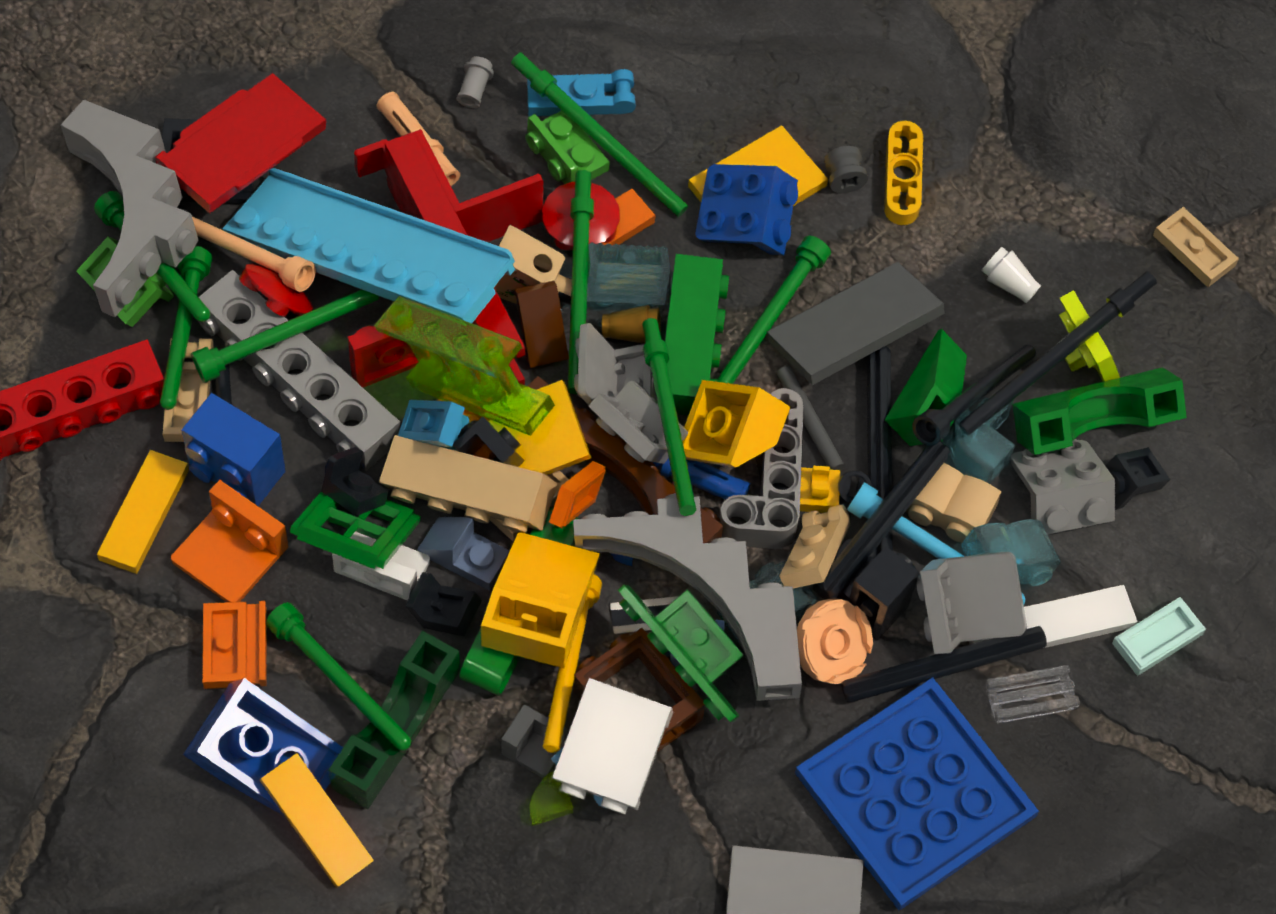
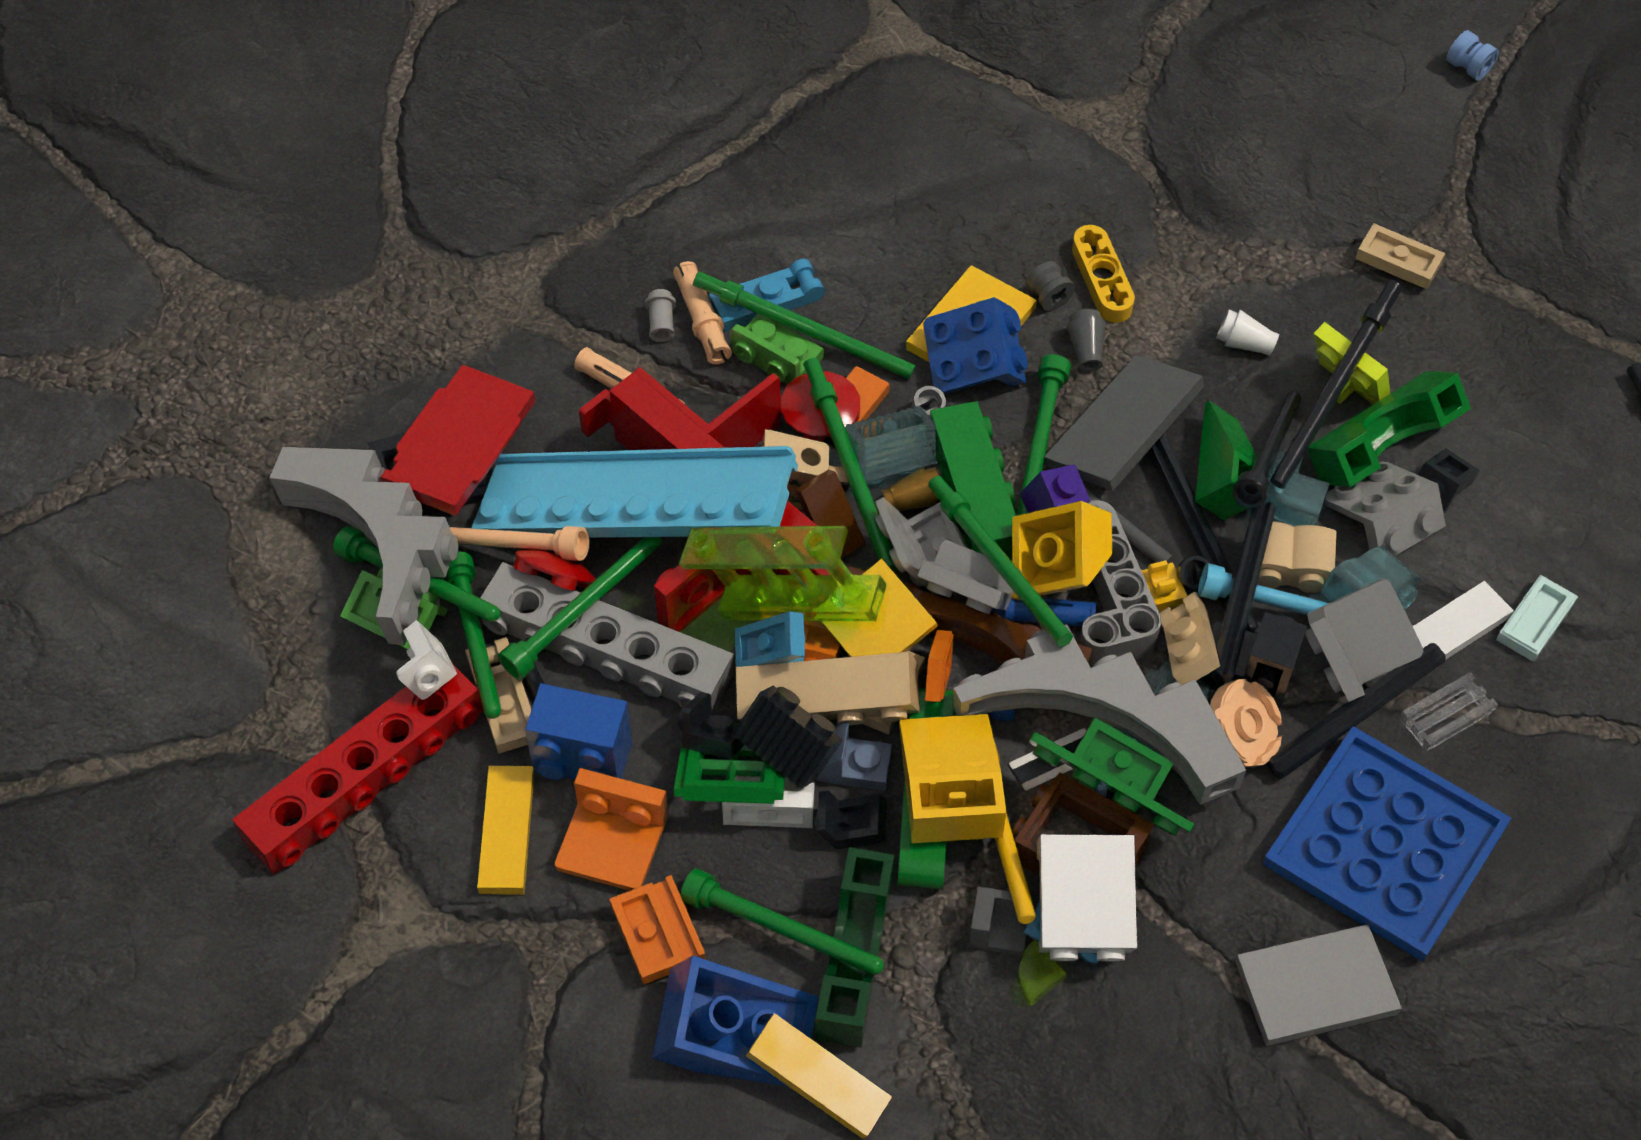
camera: 15 degrees left, 5 degrees down
(127, 342) = (428, 665): none -> white bracket
(411, 513) = (788, 735): none -> black brick
(482, 432) = (846, 639): black bracket -> none
(512, 101) = (706, 323): none -> light nougat pin
(680, 239) = (926, 396): none -> light grey hinge
(757, 368) = (1054, 489): none -> dark purple brick
(859, 229) = (1087, 337): none -> dark grey cone

